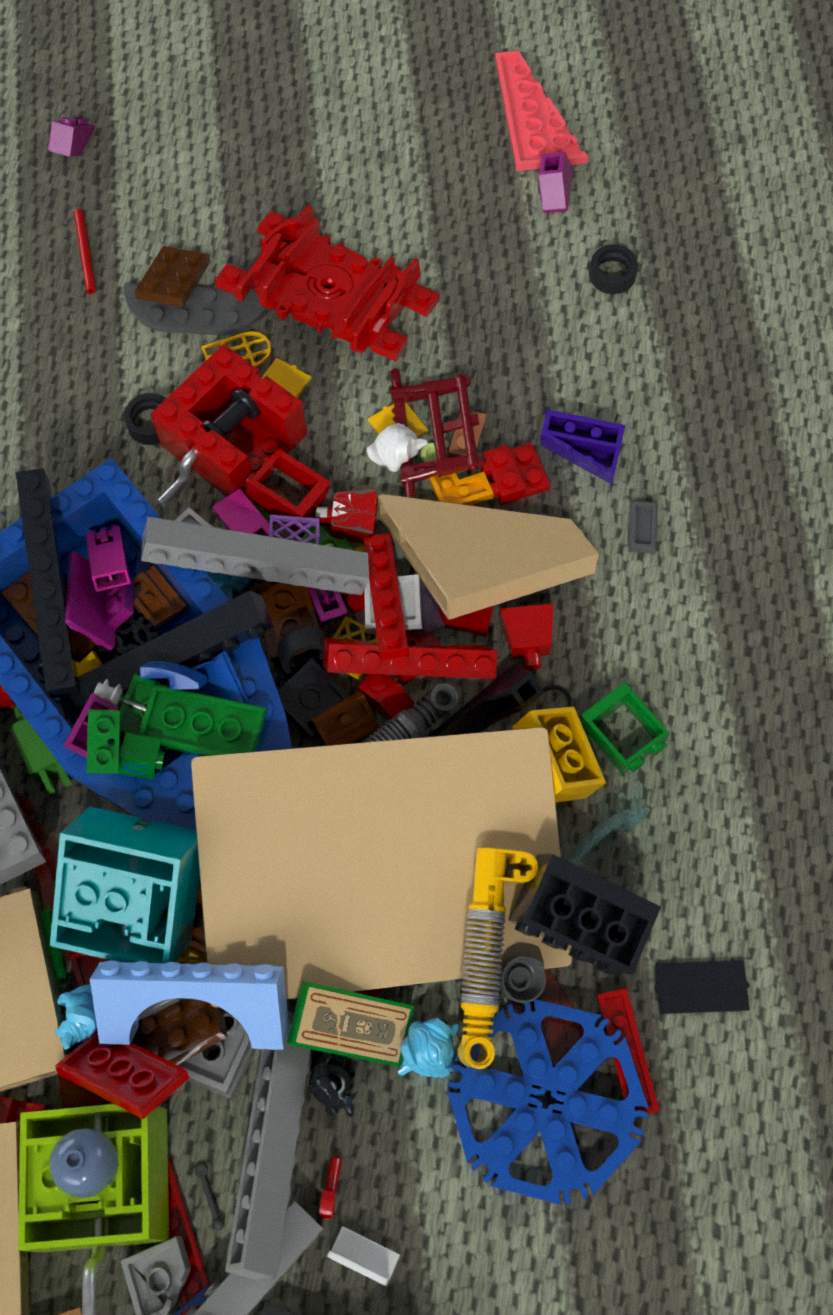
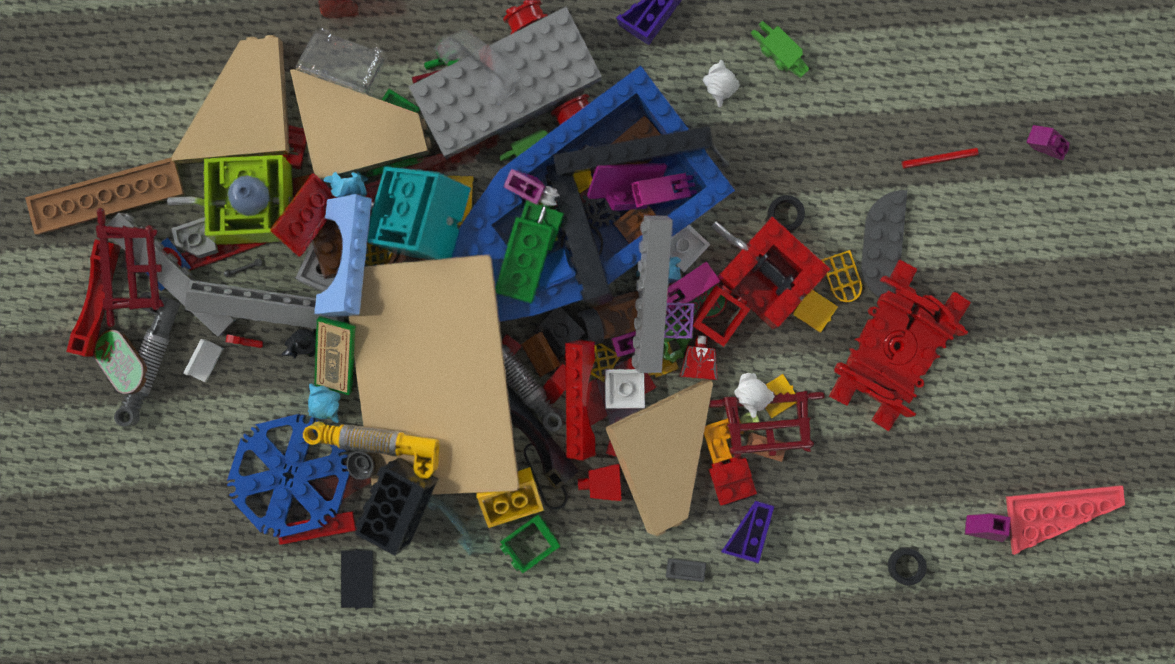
camera: 90 degrees right, 20 degrees up
(102, 755) = (505, 196): green window -> none
(140, 756) = (502, 220): green brick -> none
(172, 276) = (909, 227): reddish brown plate -> none
(179, 675) = (558, 244): blue slope -> none
(386, 597) = (624, 384): red plate -> none

